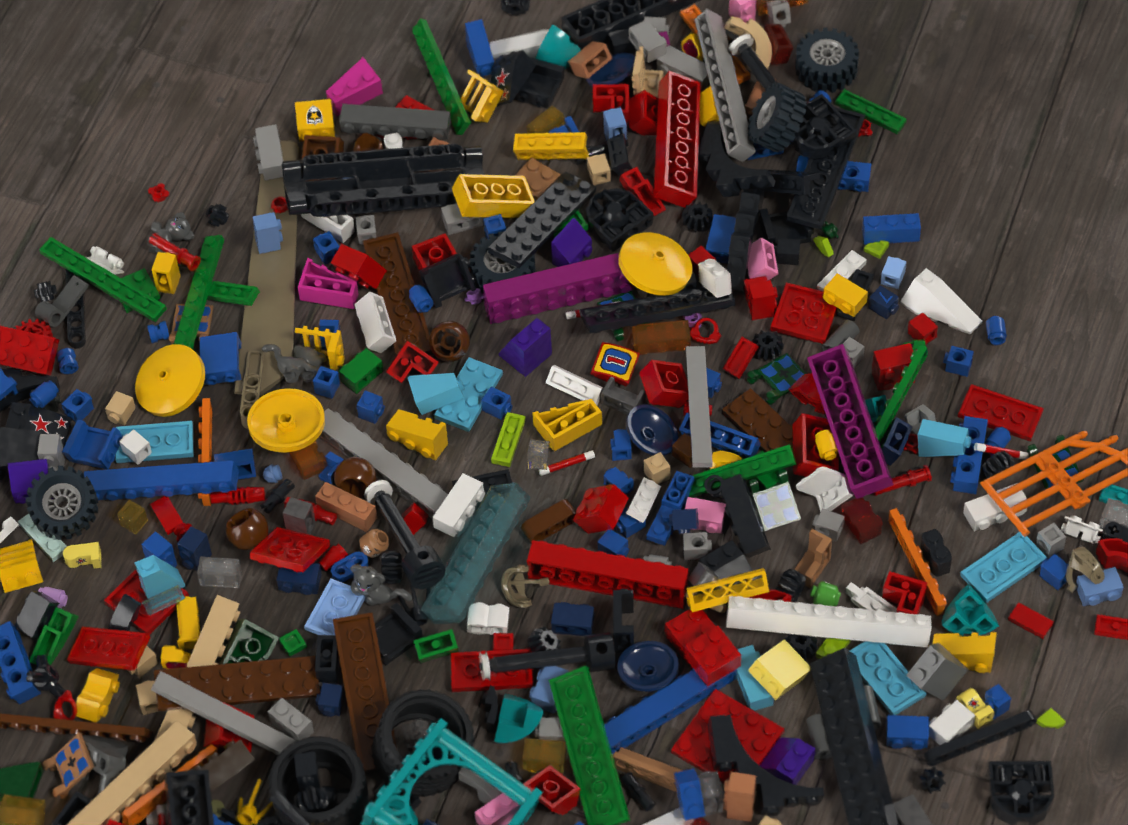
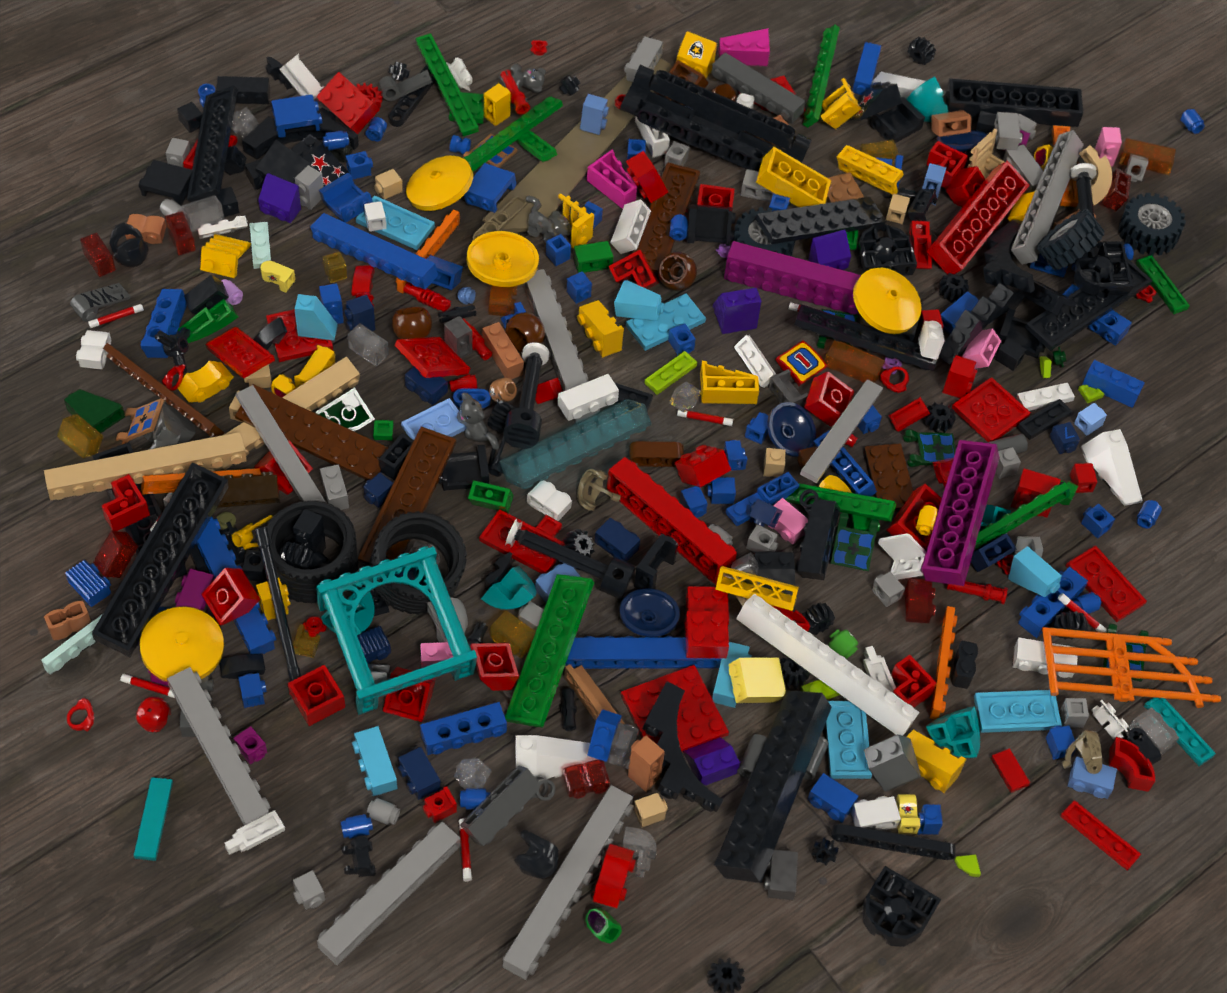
camera: 25 degrees right, 0 degrees up
(56, 482) = (284, 211): black wheel -> none
(163, 600) = (307, 339): clear light blue tile -> none
(643, 499) = (743, 479): white plate -> none
(816, 557) = (856, 610): medium nougat panel -> none
(845, 295) = (1033, 413): yellow brick -> none

